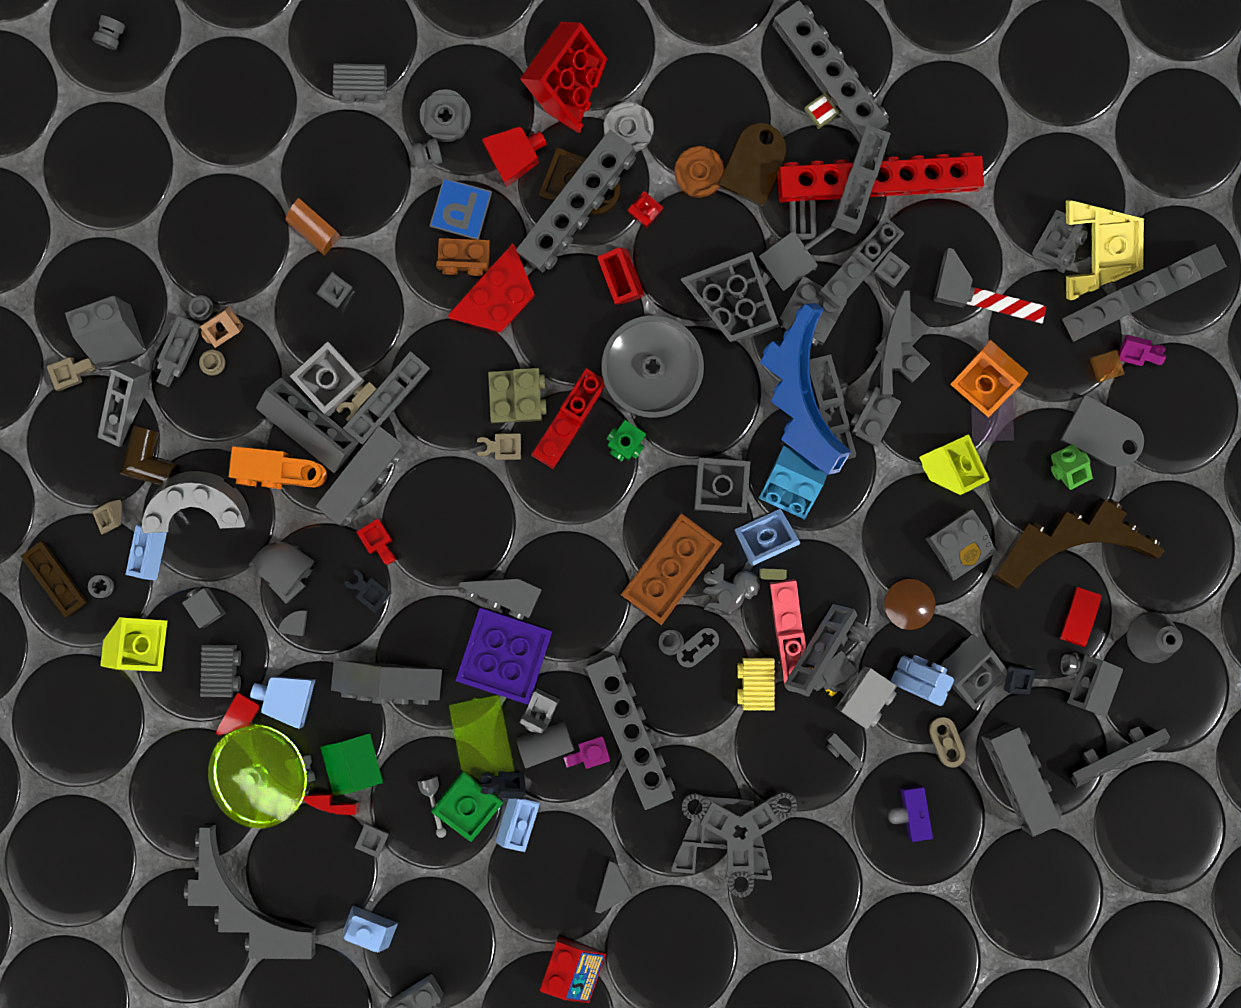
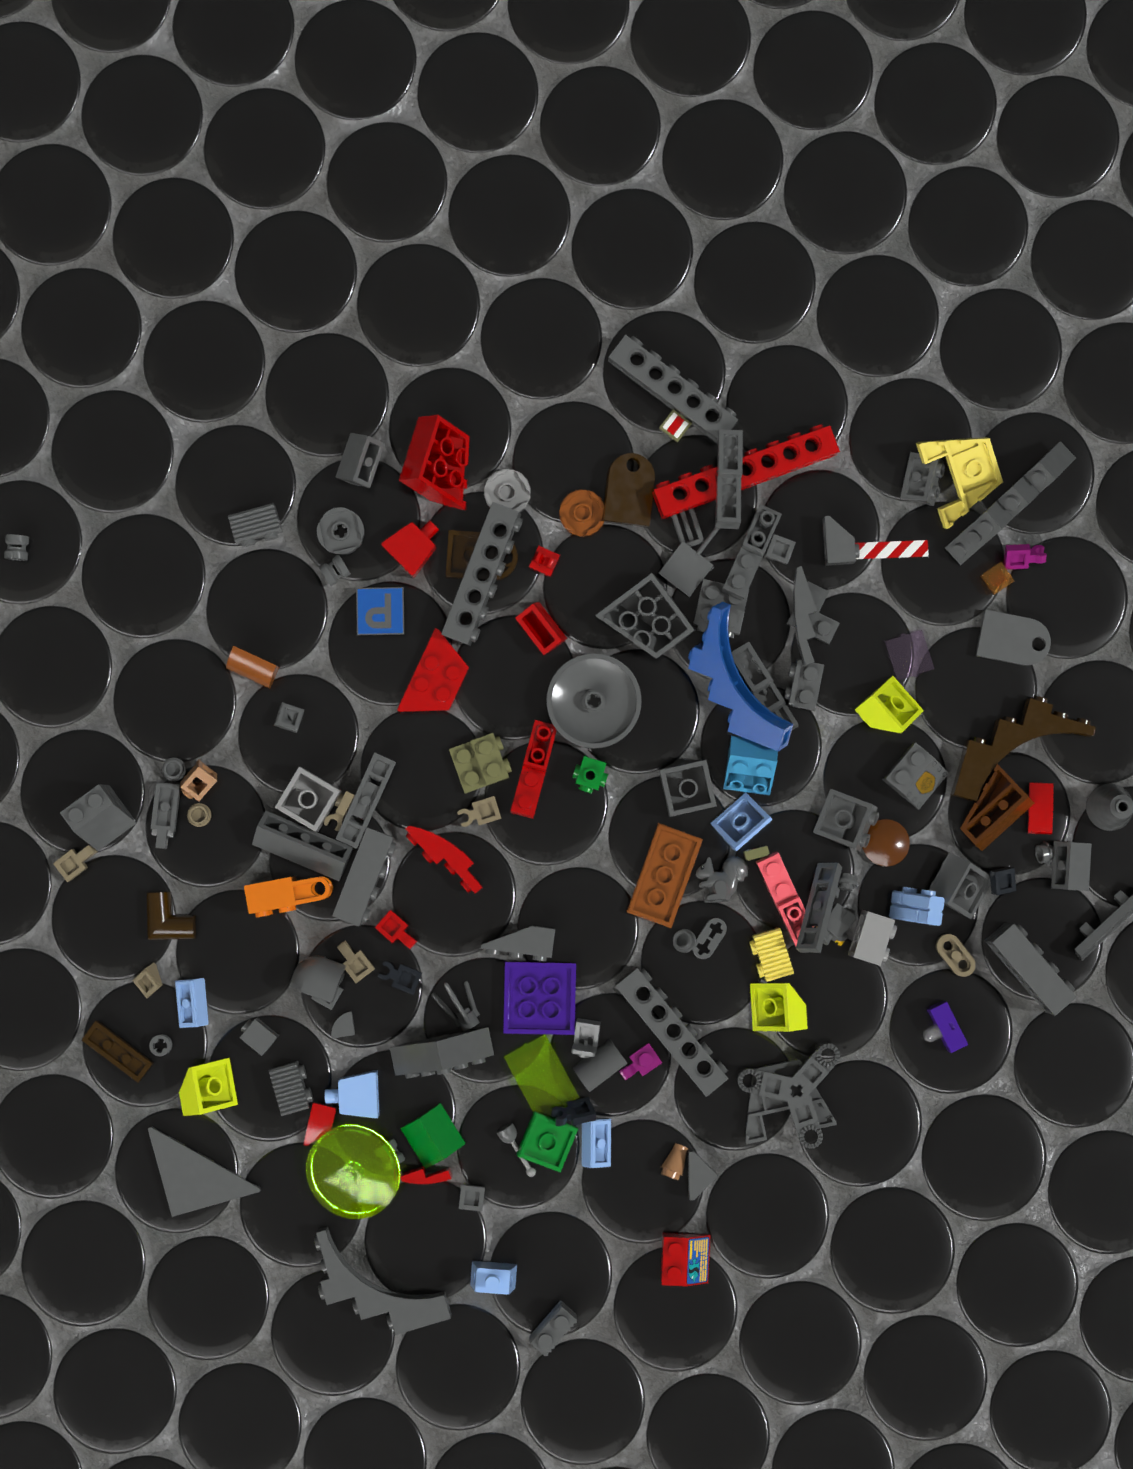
camera: 20 degrees left, 0 degrees up
(91, 733) = (193, 1179): none -> dark grey tile
(123, 398) = (130, 874): dark grey slope -> none
(199, 491) = (222, 934): brick -> none
(326, 564) = (356, 963): none -> dark tan plate
(422, 652) = (466, 1018): none -> dark grey plant
(446, 471) = (438, 848): none -> red slope
(463, 255) = (394, 652): dark orange bracket -> none
(487, 47) = (360, 460): none -> dark grey brick
(592, 867) = (675, 1162): none -> medium nougat cone
(746, 740) = (777, 1008): none -> neon yellow slope
(838, 747) = (861, 989): dark grey plate -> none
(876, 568) = (846, 820): none -> dark grey plate
(989, 378) = (896, 620): orange slope -> none
(1034, 603) = (996, 809): none -> reddish brown wedge
(1071, 466) = (988, 674): bright green brick -> none

